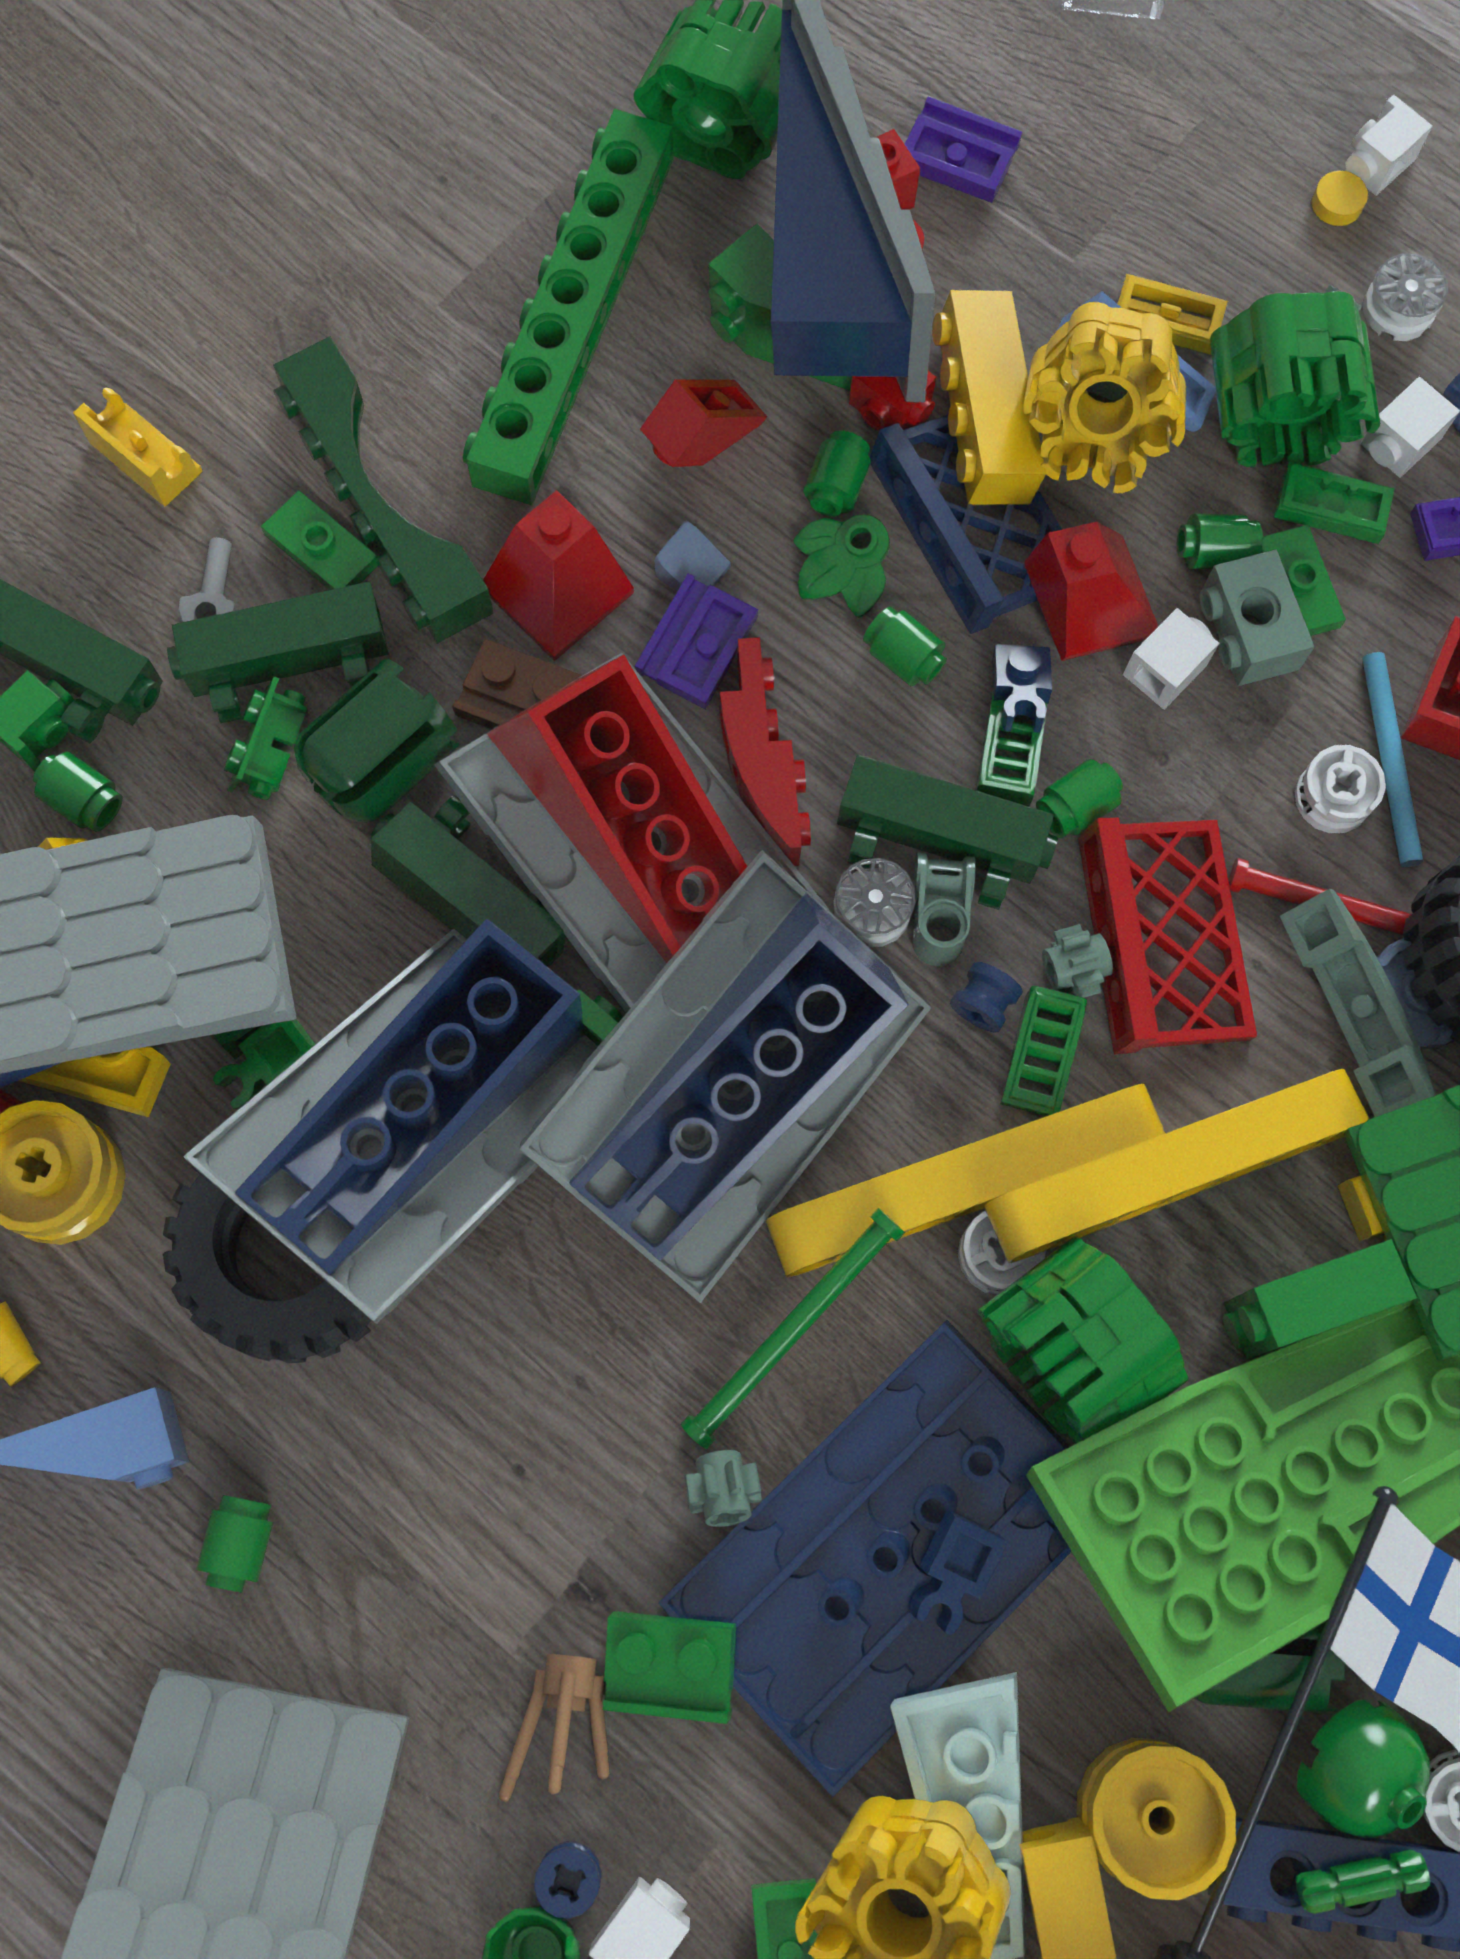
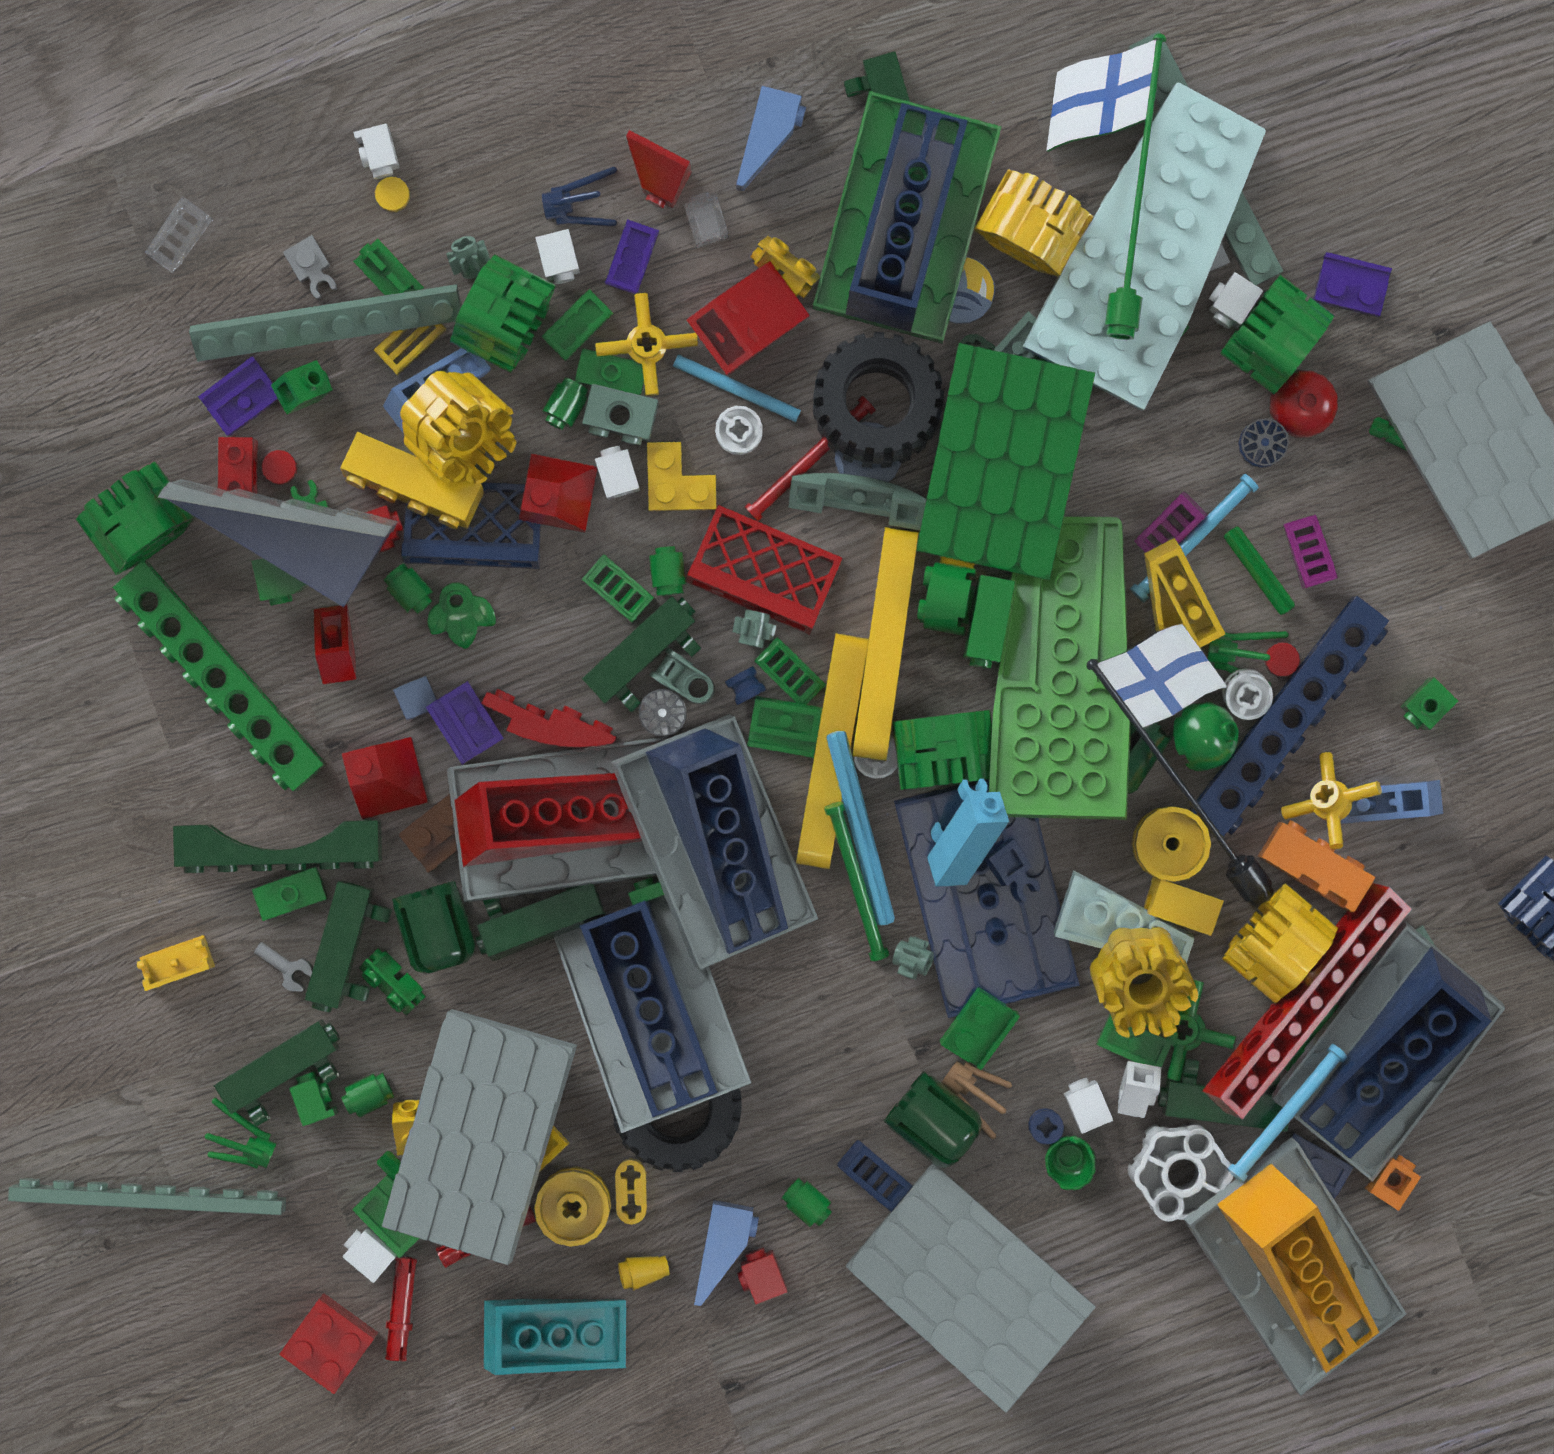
camera: 55 degrees left, 15 degrees up
(77, 1537) = (762, 1275): none -> red brick
(110, 1242) = (639, 1191): none -> yellow beam
(268, 1055) = (579, 1068): green plate -> none
(349, 1577) = (852, 1158): none -> dark blue slope
(475, 1681) = (935, 1121): none -> dark green cylinder
(879, 1286) = (860, 827): none -> medium azure axle
(905, 646) = (531, 612): green brick -> none
(959, 1086) = (784, 726): none -> green plate
(978, 1455) = (967, 836): none -> medium azure brick
(1023, 204) = (302, 387): none -> green brick
(1024, 681) = (583, 560): dark blue plate -> none
(1118, 185) = (325, 323): none -> sand green plate
(1181, 150) = (309, 262): none -> light grey plate
(1196, 747) = (670, 489): none -> yellow plate
(1236, 240) = (385, 270): none -> green hinge
(1307, 1217) = (947, 599): none -> green brick
(1362, 1881) = (1249, 769): green axle -> none
(1373, 600) = (655, 335): none -> yellow bar
(1404, 279) = (477, 202): white wheel -> none

